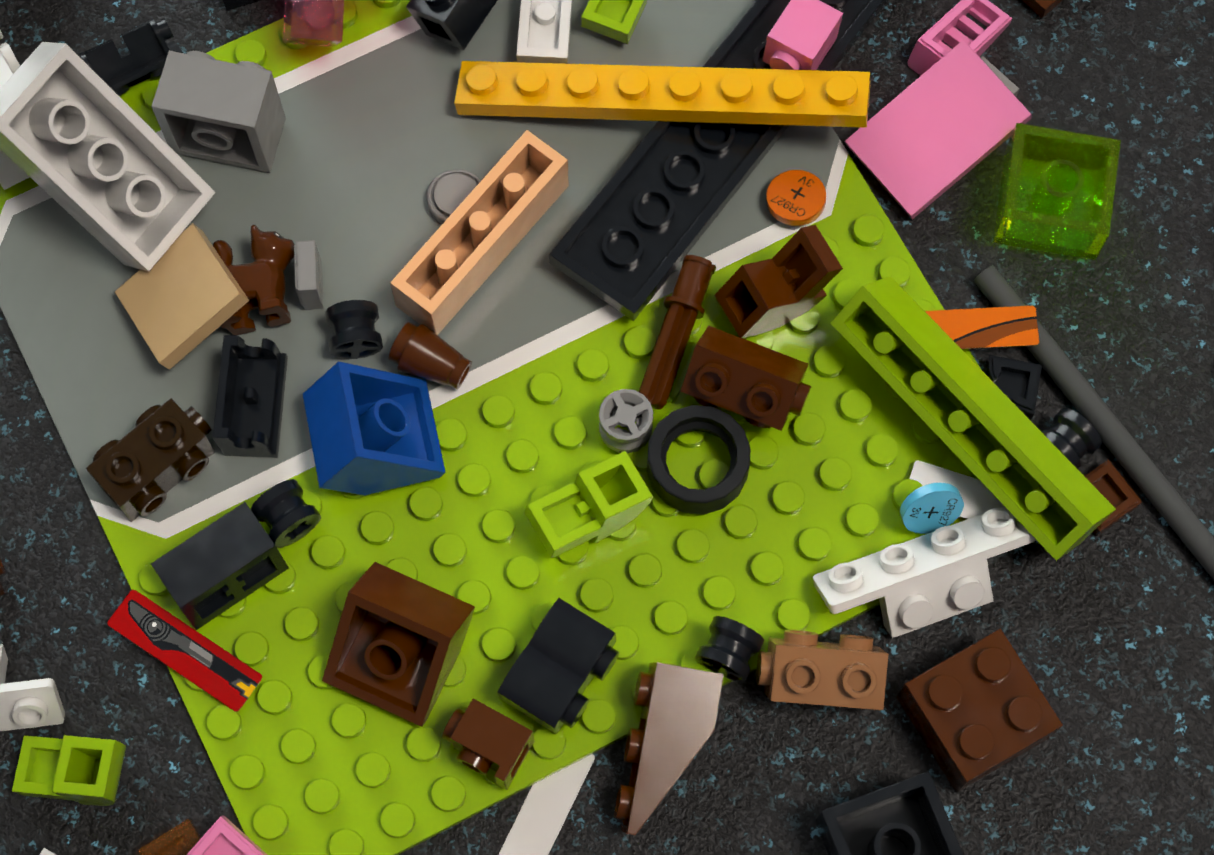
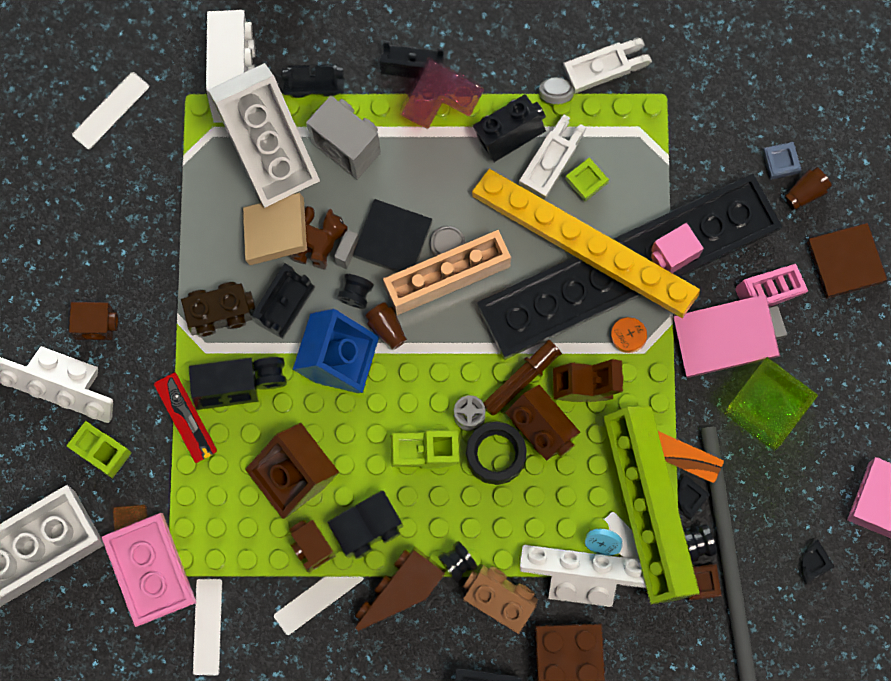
camera: 30 degrees right, 5 degrees up
(367, 226) = (392, 237): none -> black tile

